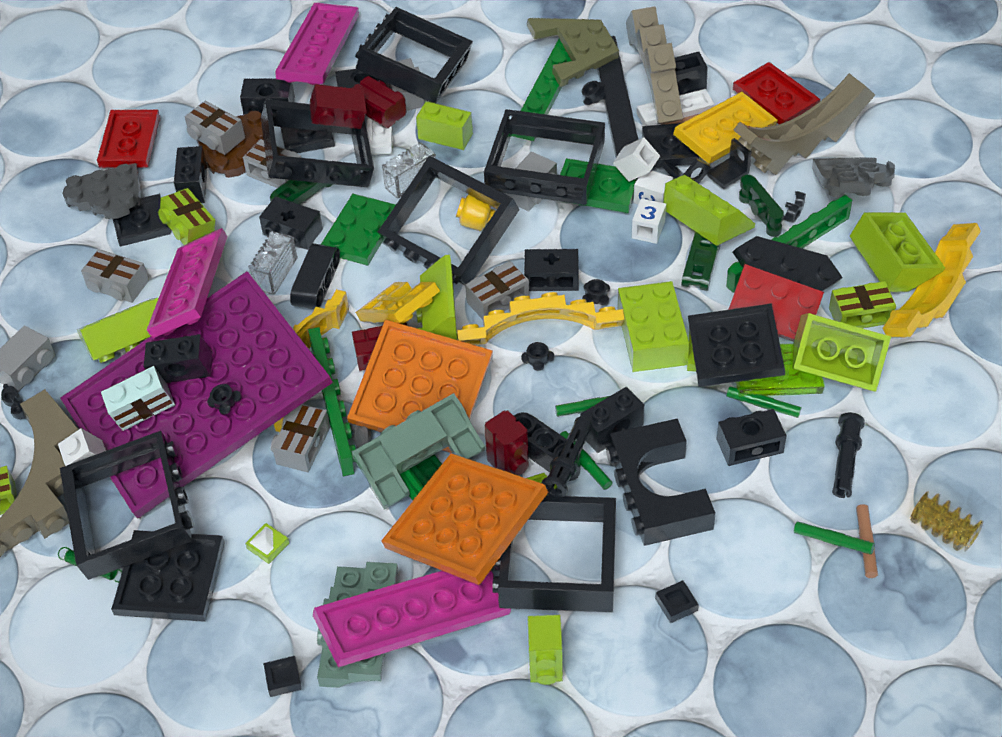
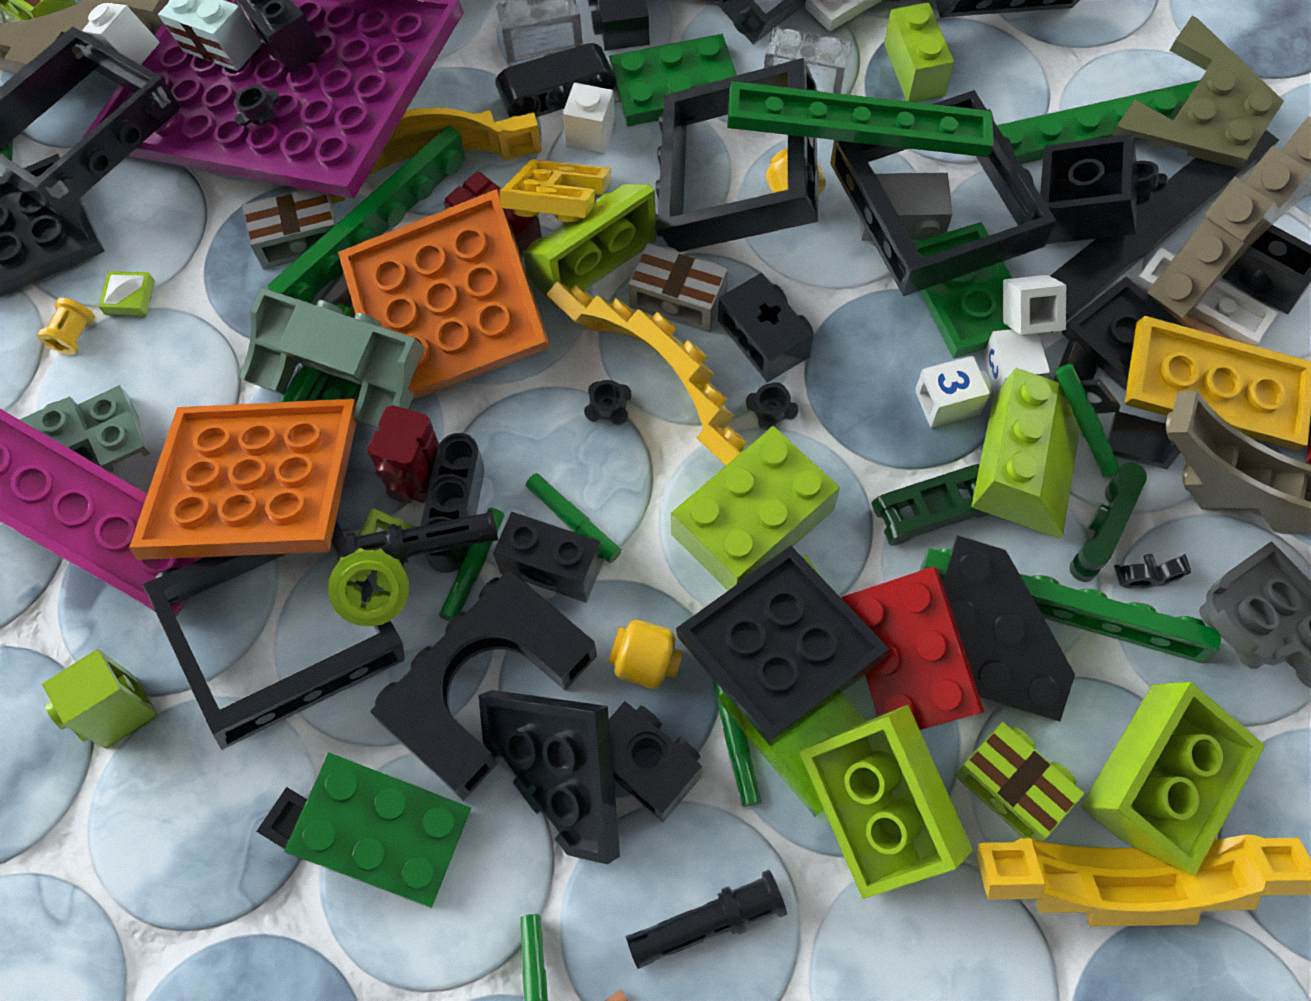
camera: 55 degrees right, 15 degrees up
(267, 579) = (66, 326): none -> yellow bush
(356, 272) = (589, 118): none -> white brick
(489, 154) = (860, 119): none -> green plate
(589, 101) = (1091, 188): none -> black brick
(590, 494) = (381, 605): none -> lime gear
(695, 407) = (645, 654): none -> yellow head
(707, 179) = (1087, 420): none -> green piece
(708, 563) = (378, 830): none -> green plate
(731, 465) = (559, 764): none -> black plate

